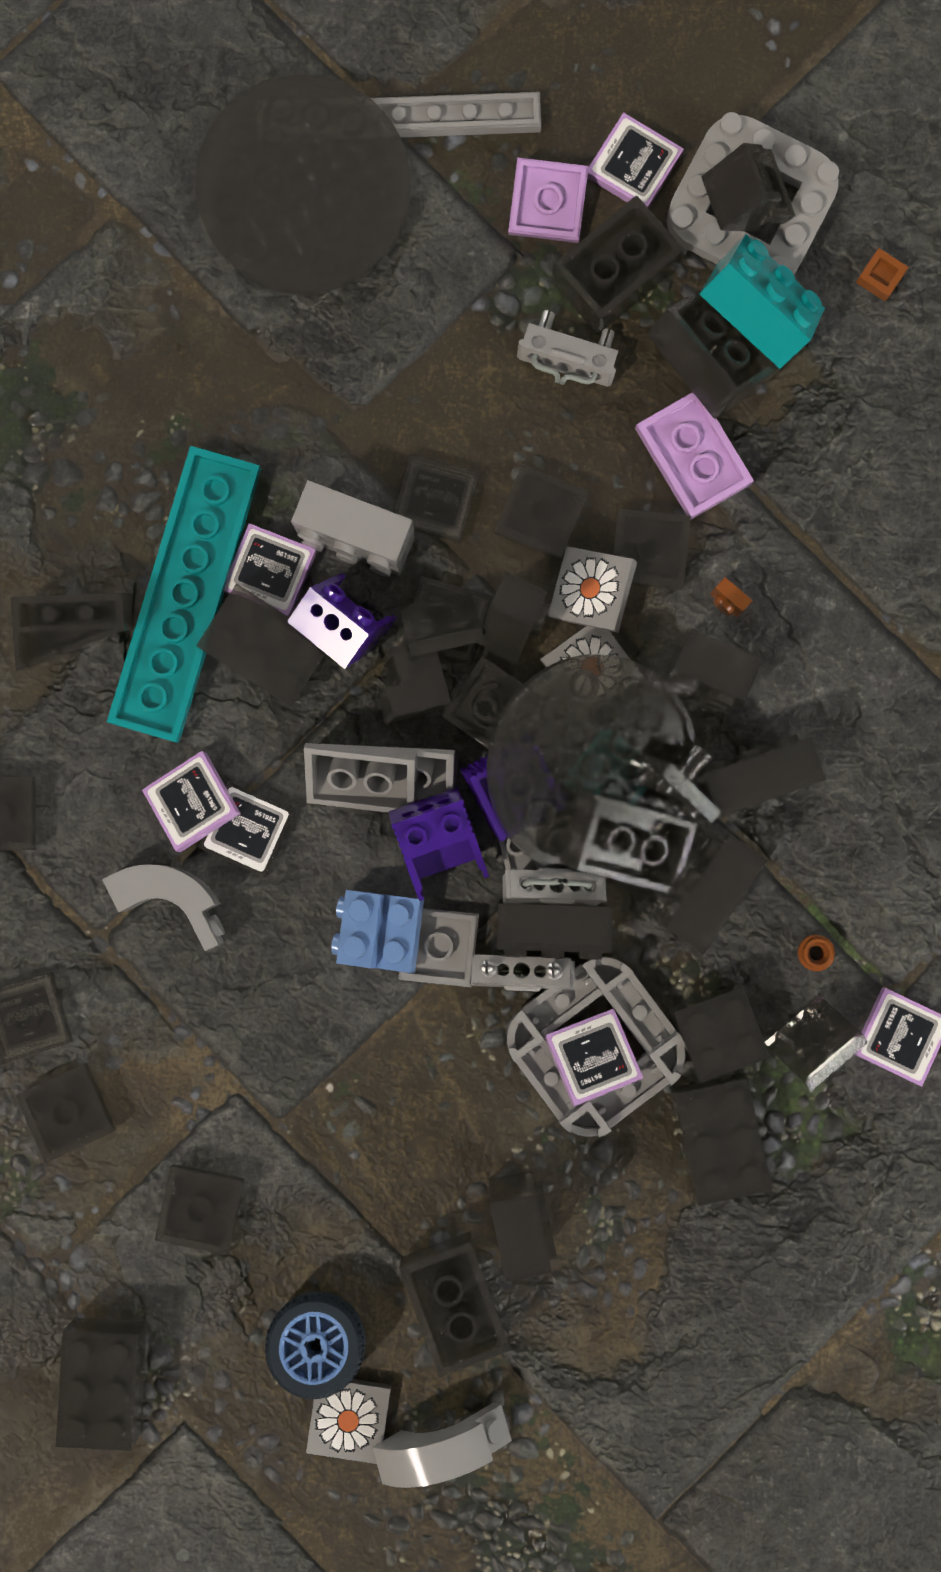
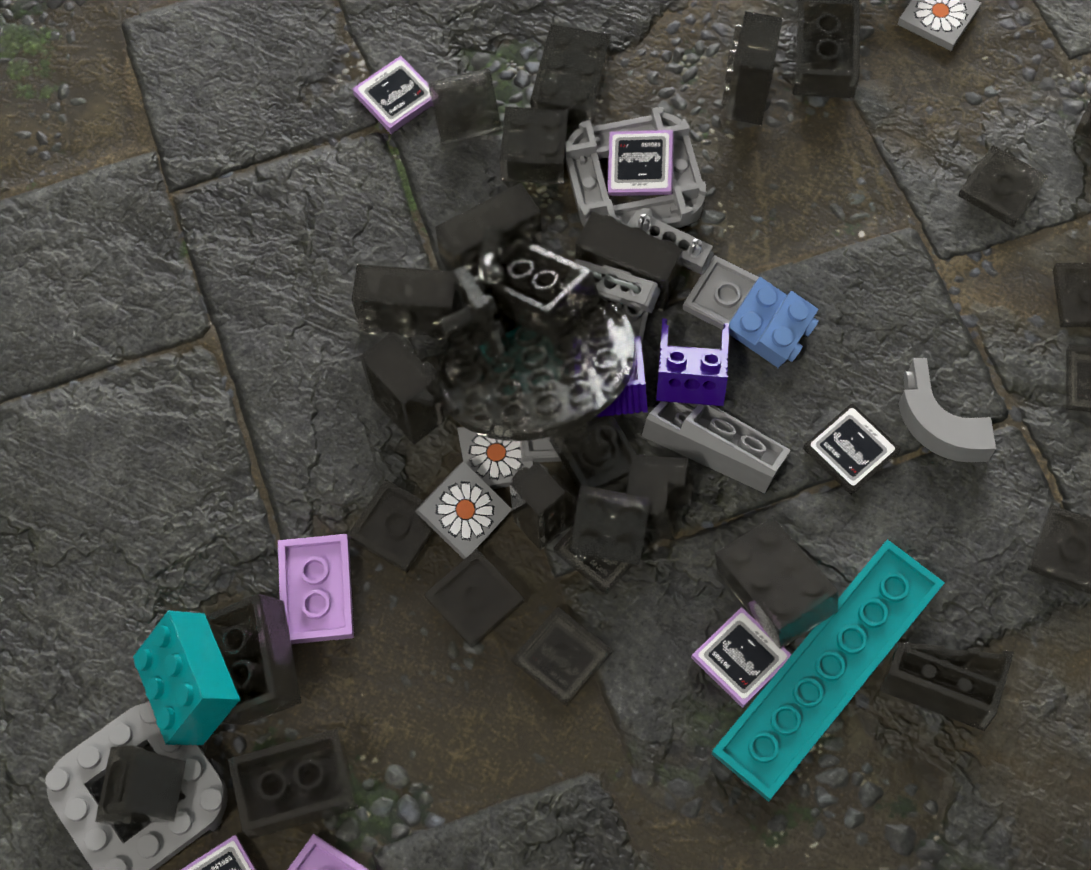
camera: 155 degrees left, 20 degrees down
(191, 801) = (892, 487): tile -> none
(289, 1345) = (945, 60): wheel -> none
(337, 623) = (703, 565): piece -> none
(353, 529) = (650, 644): light grey brick -> none
(566, 354) = (379, 728): light grey piece -> none
(691, 847) = (490, 256): none -> clear smoke arm
(730, 598) = (352, 455): dark orange plate -> none
(826, 957) = (428, 165): dark orange plate -> none
(882, 274) = (63, 672): dark orange plate -> none

